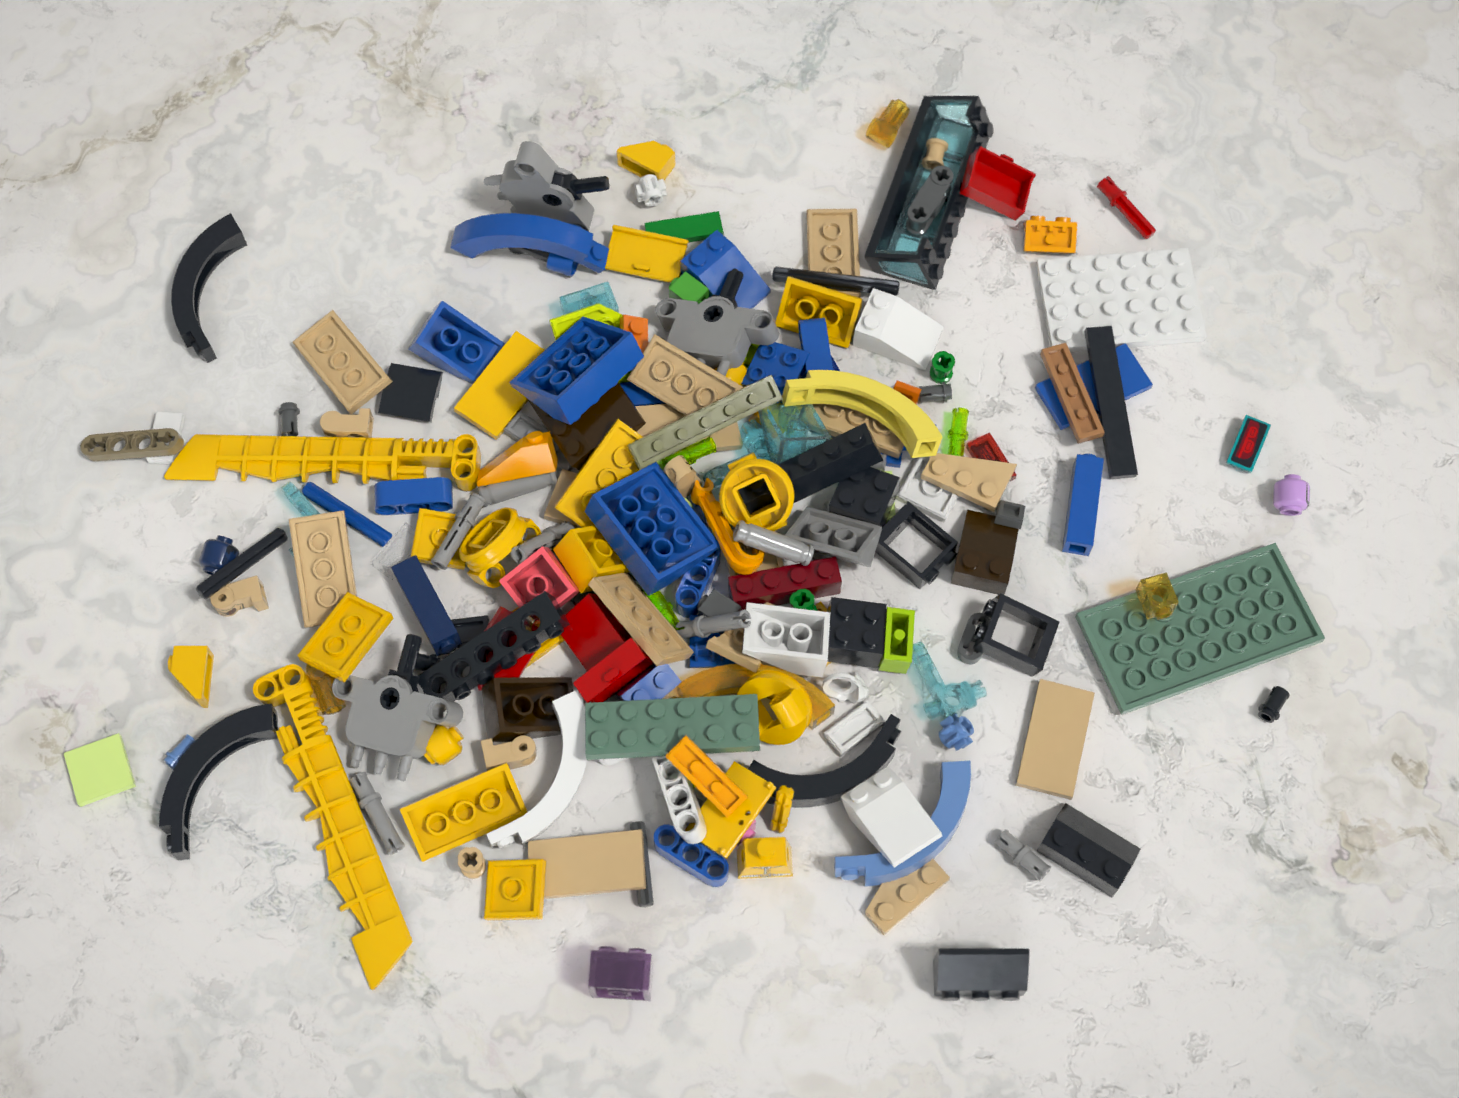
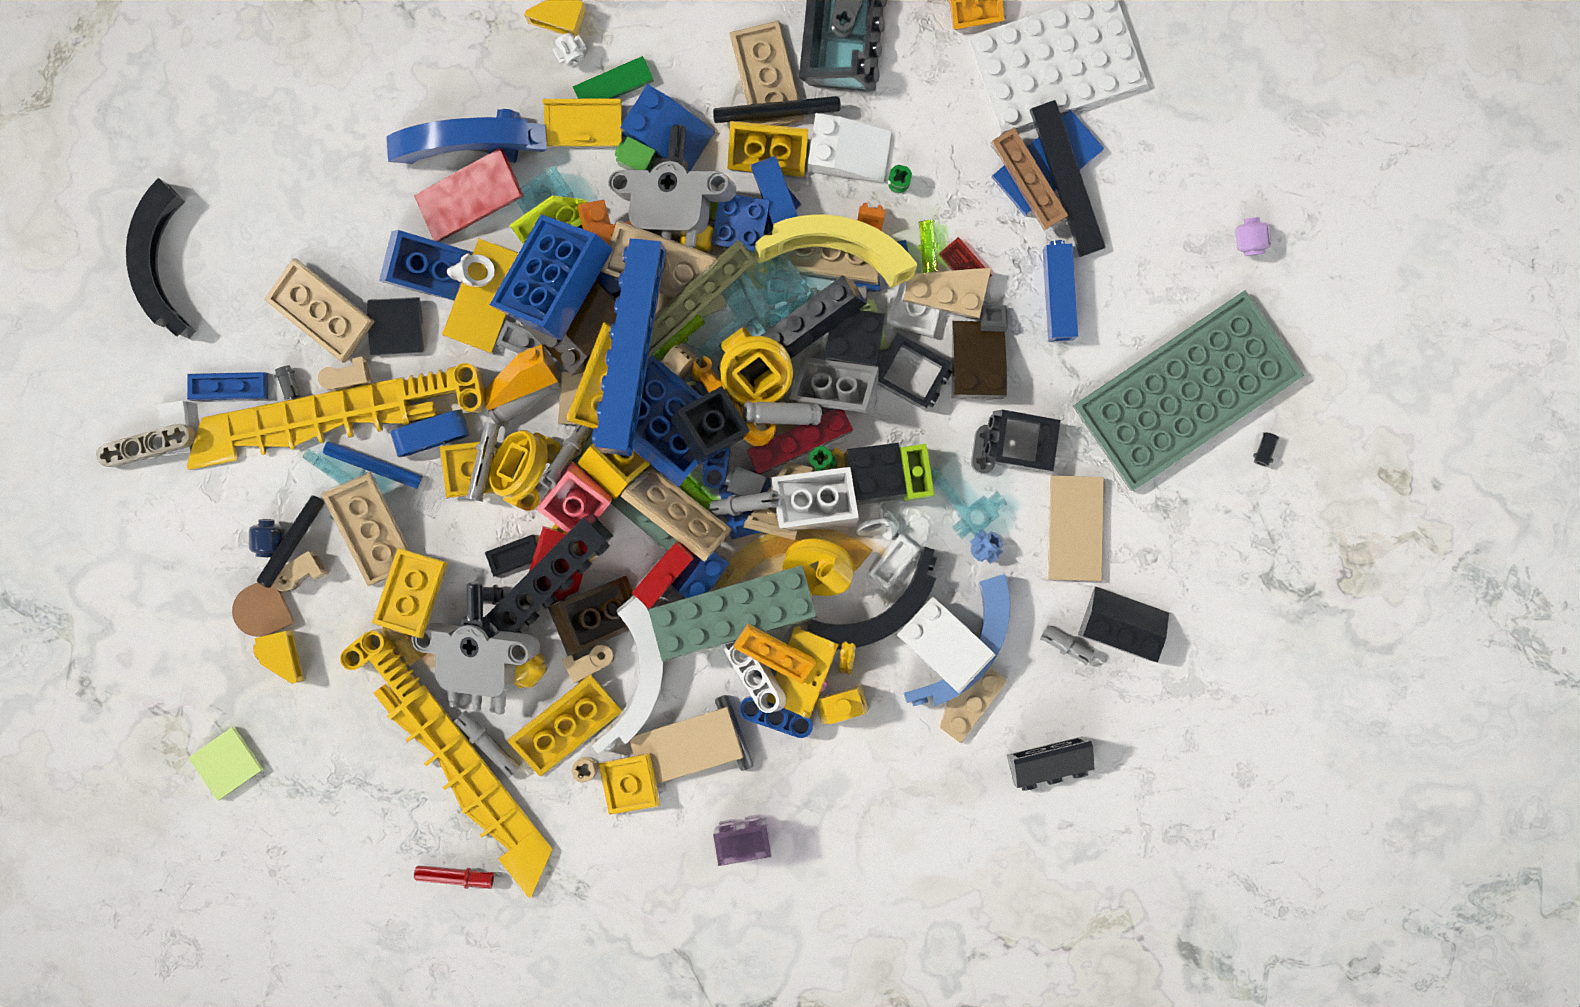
camera: 15 degrees left, 20 degrees up
(175, 755) = (294, 731): medium blue pin -> none
(189, 624) = (261, 611): none -> medium nougat tile
(200, 760) = (313, 737): black arch -> none
(230, 412) = (227, 386): none -> blue tile
(299, 945) = (465, 878): none -> red axle
(426, 606) = (474, 541): dark blue brick -> none
(488, 354) = (460, 273): none -> white piece
(518, 291) = (468, 195): none -> tile
(544, 189) = (467, 85): light grey piece -> none
(593, 631) = (638, 537): red container -> none
(635, 443) = (630, 347): none -> blue brick
(697, 533) = (710, 425): none -> black brick
(937, 393) = (898, 206): dark grey pin -> none
(1160, 586) = (1150, 364): clear yellow brick -> none
(1248, 443) = (1204, 190): slope -> none

